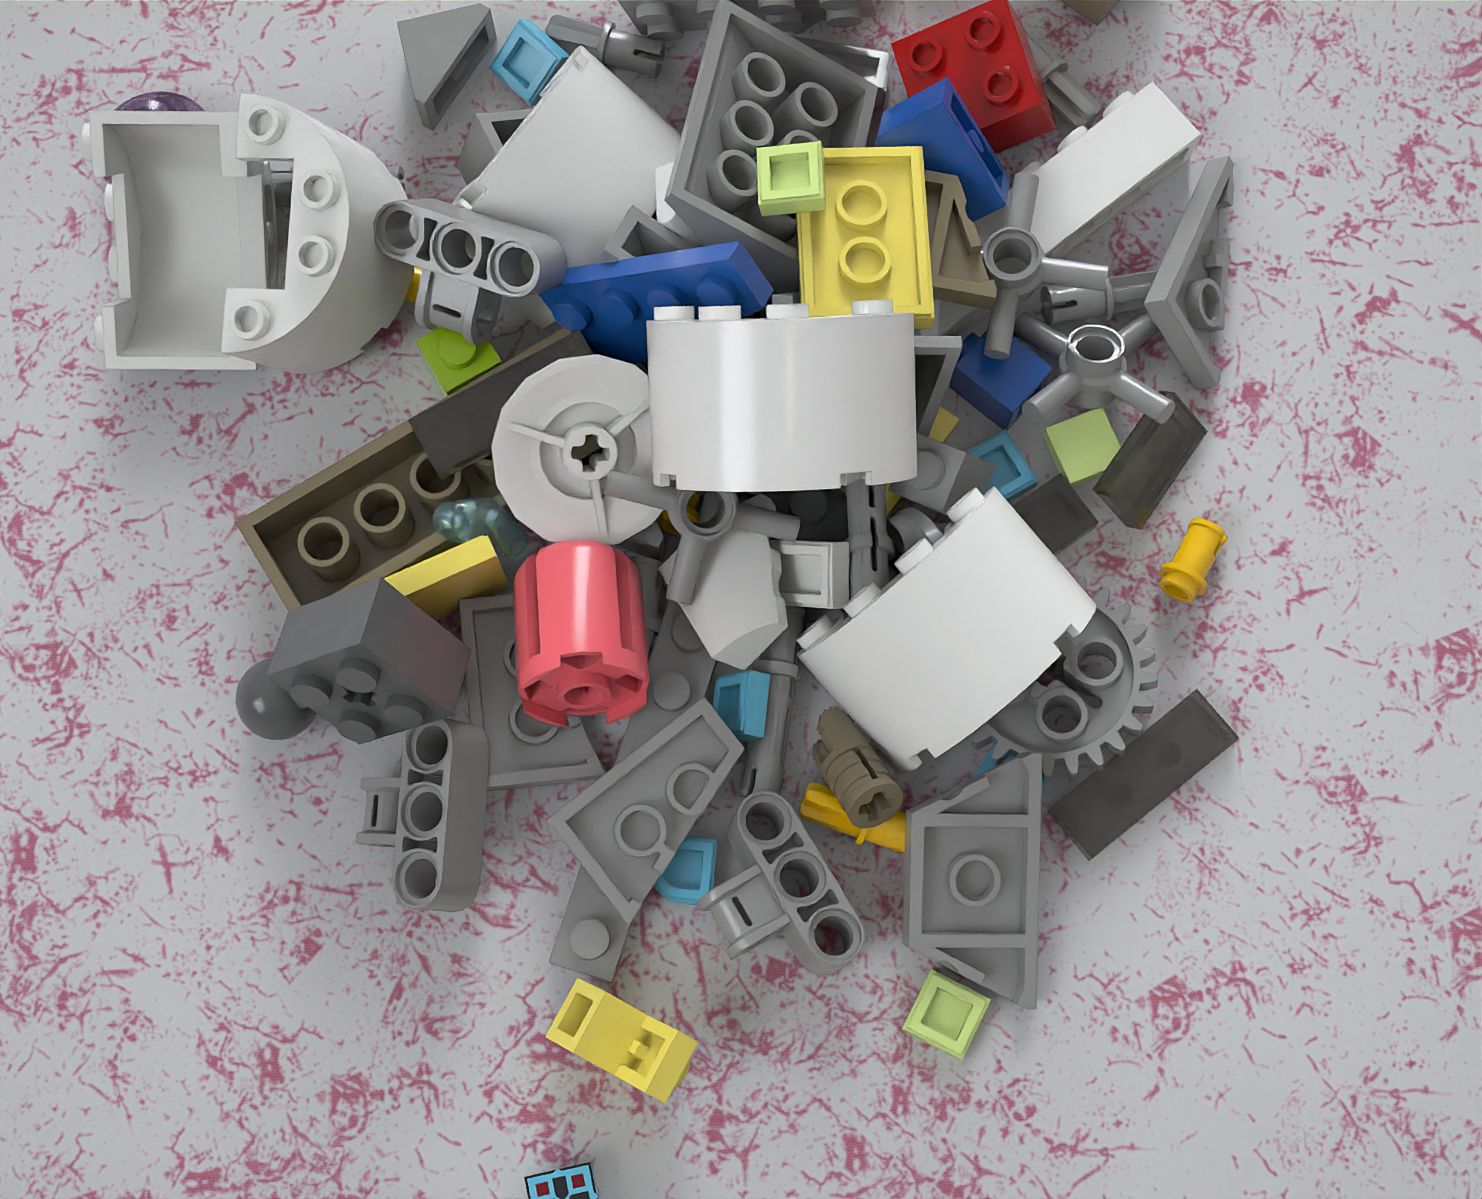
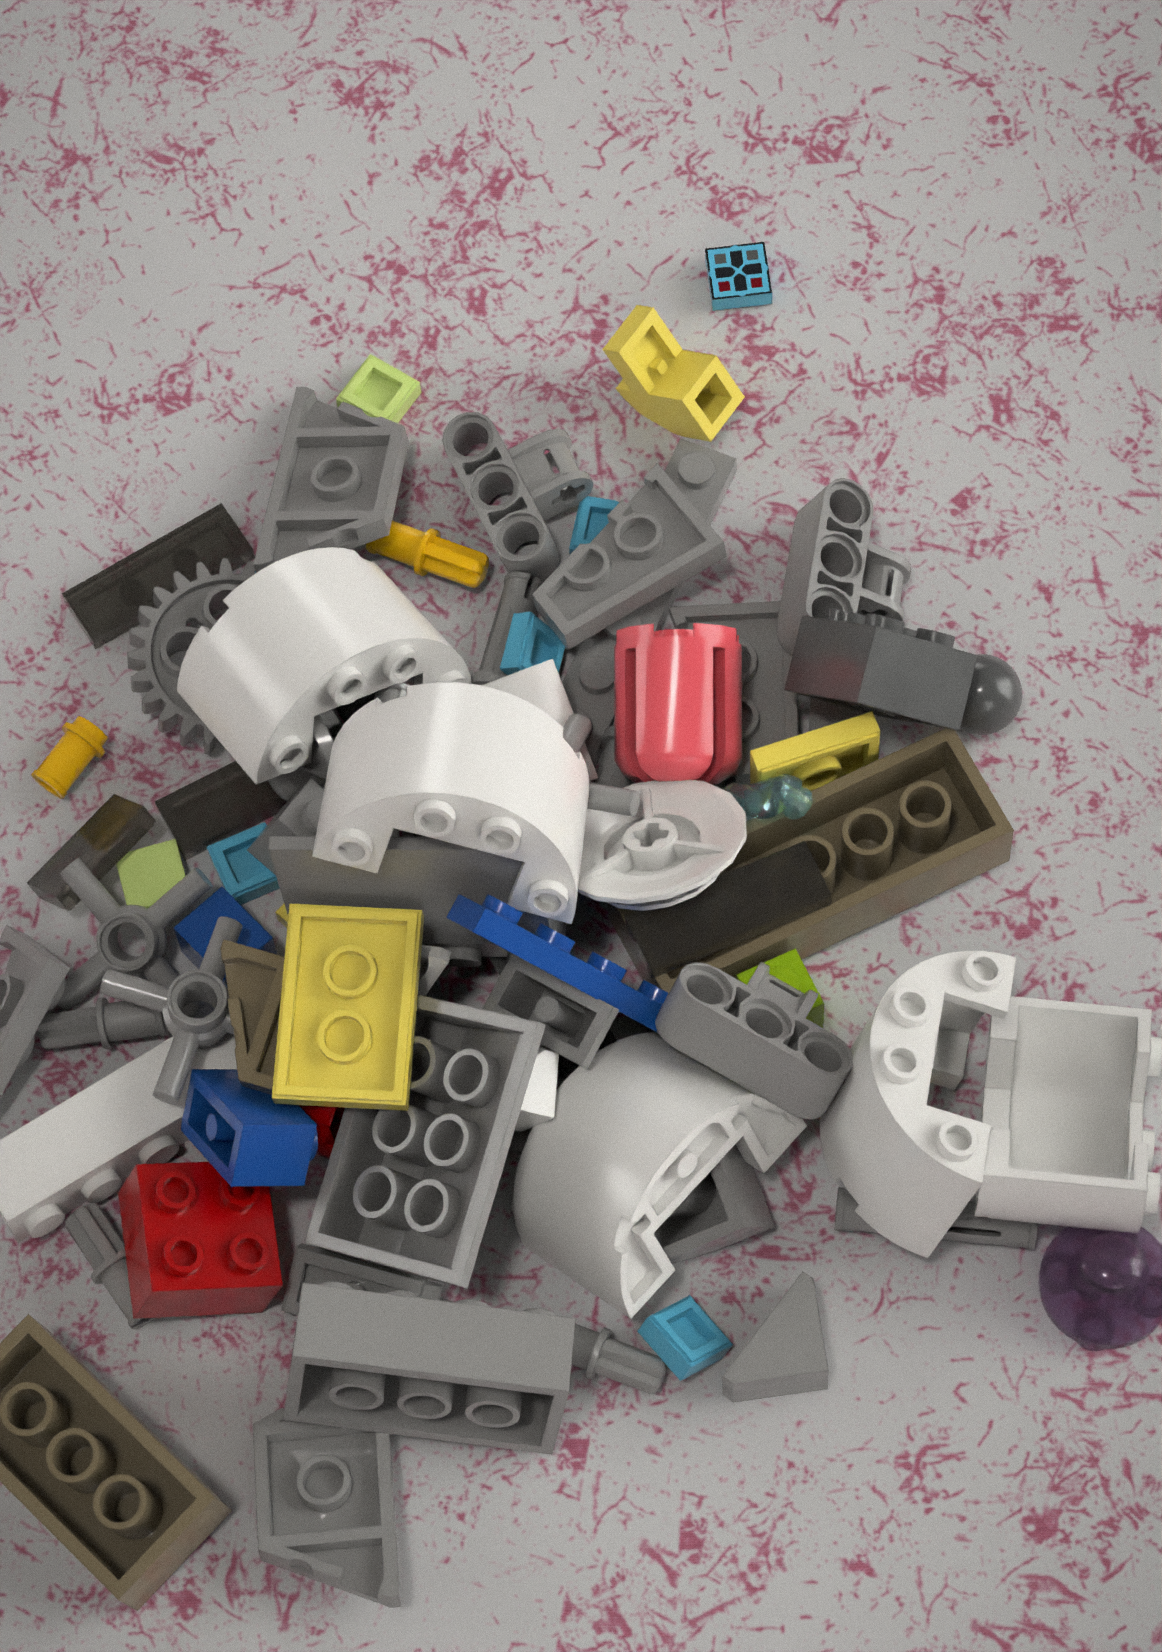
camera: 170 degrees left, 10 degrees down
(791, 178) = (412, 1058): yellowish green tile -> none
(855, 771) = (432, 577): dark tan hinge -> none

